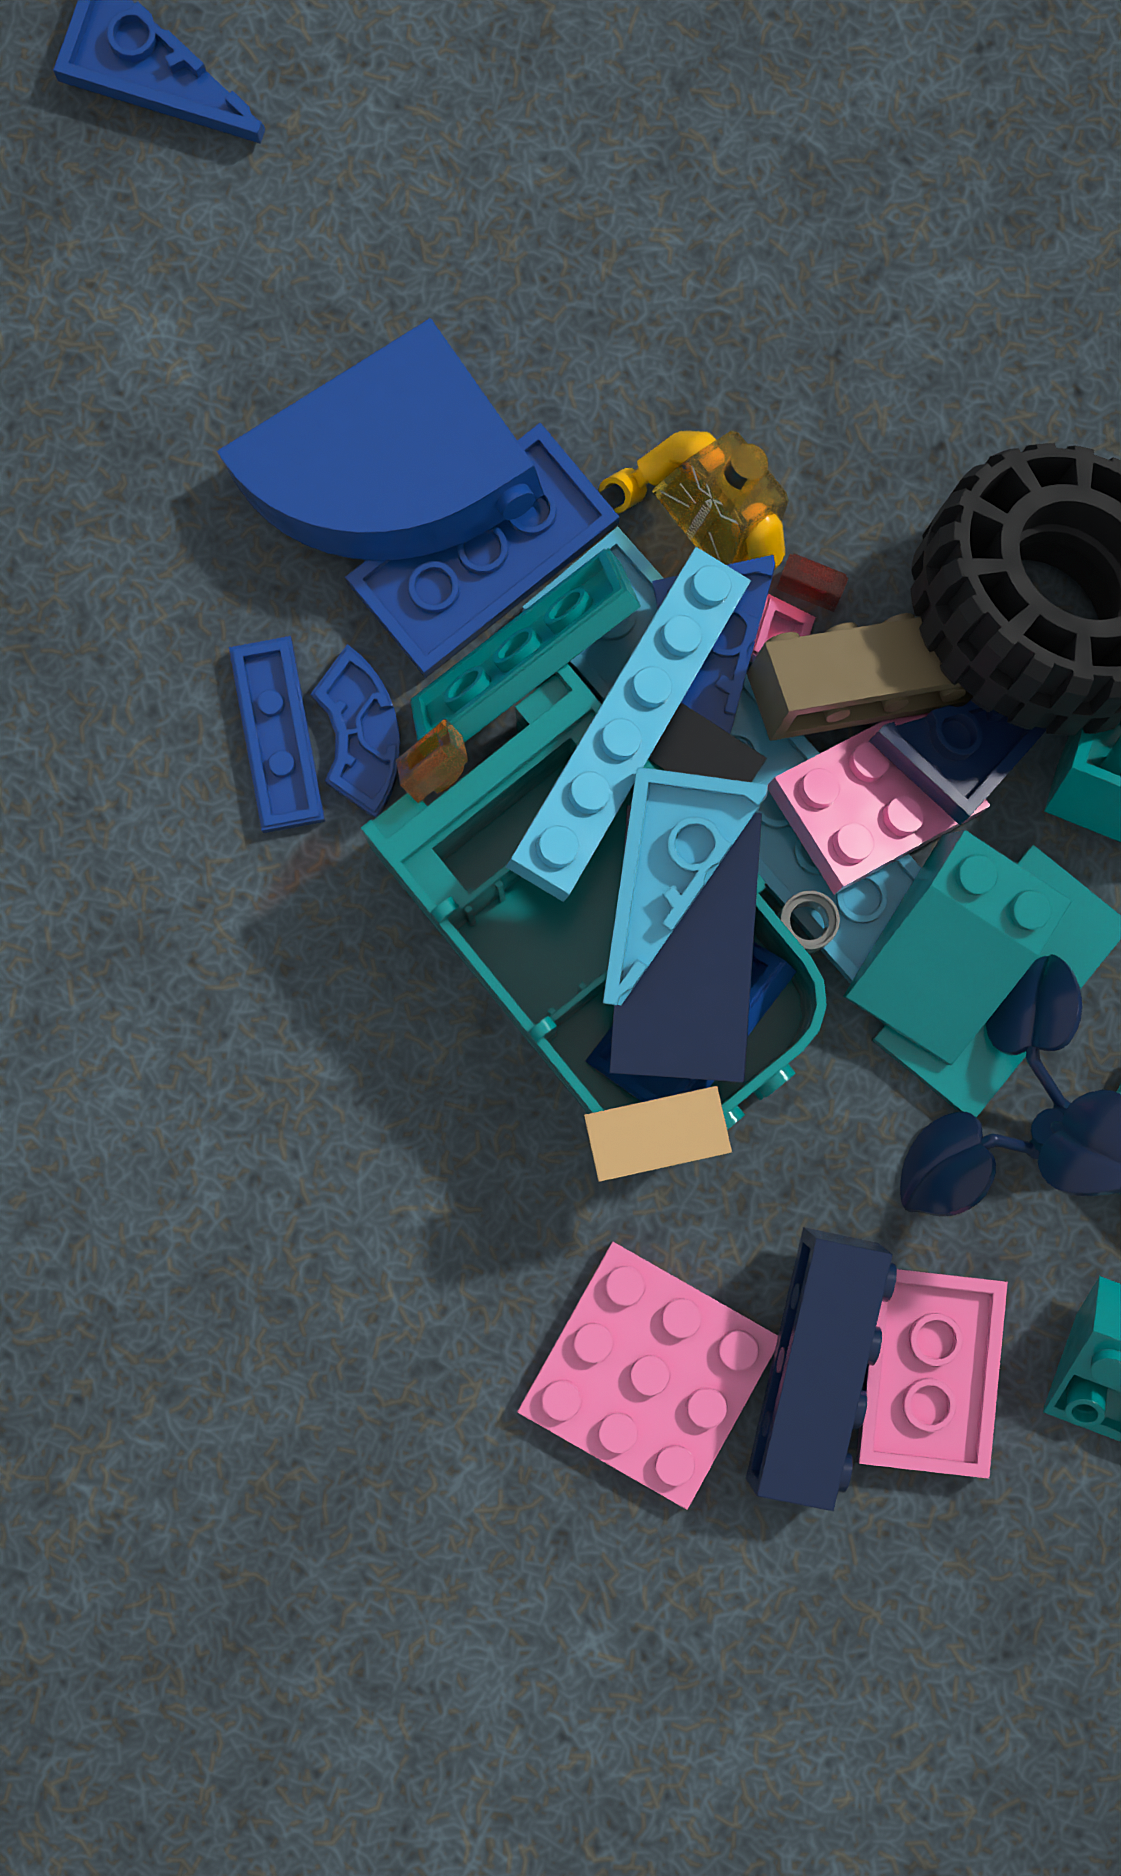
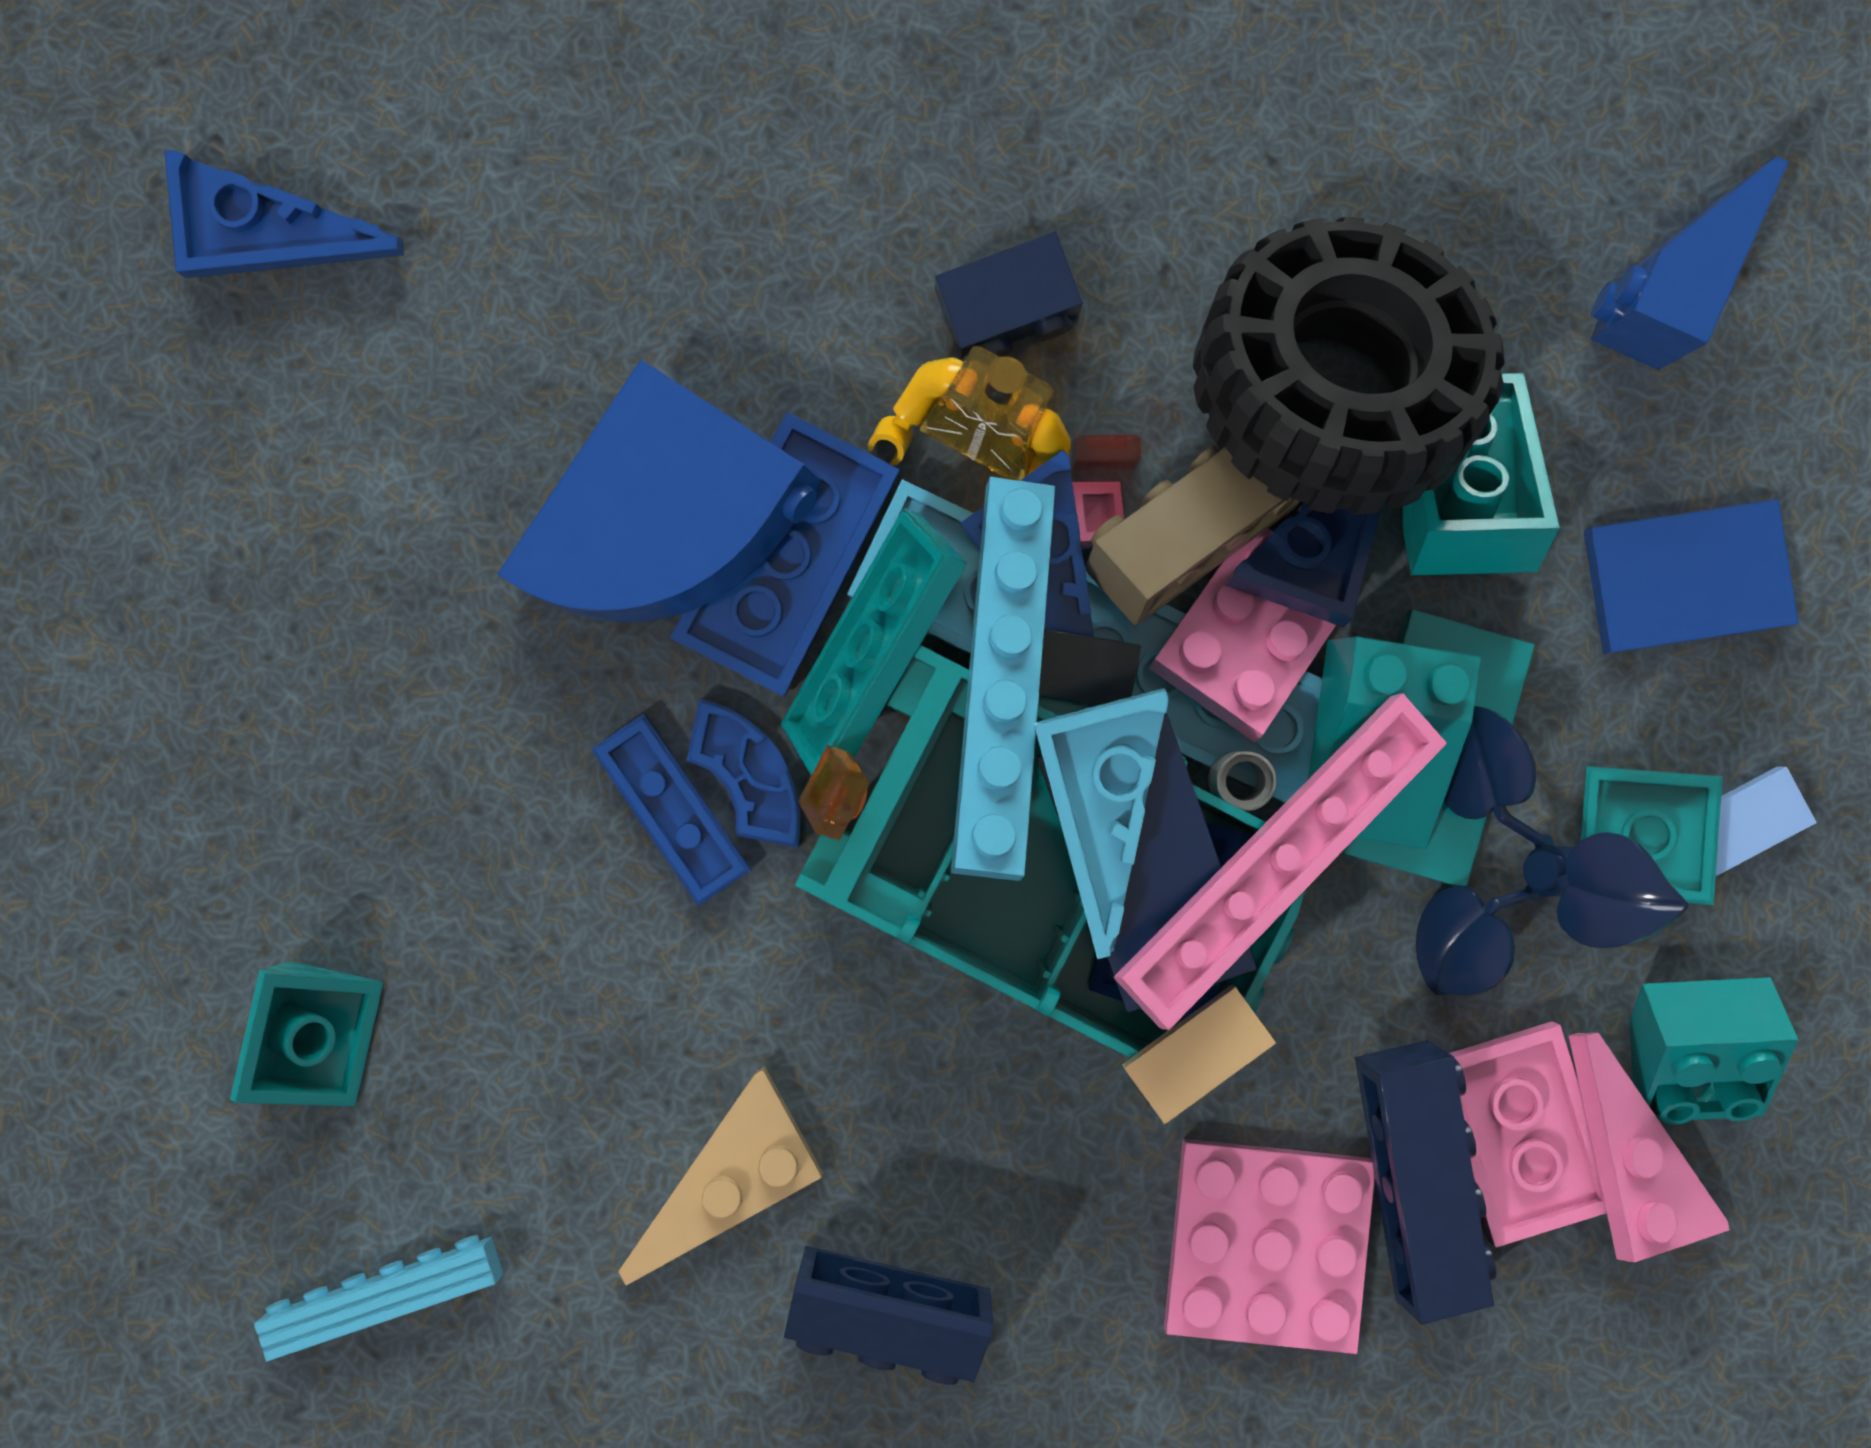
camera: 20 degrees left, 5 degrees up
(193, 1088) = (743, 1169): none -> tan wing
(264, 1277) = (890, 1316): none -> dark blue slope
(787, 406) = (1010, 297): none -> dark blue brick
(806, 989) = (1279, 861): none -> bright pink plate
(1025, 1458) = (1645, 1180): none -> bright pink wing

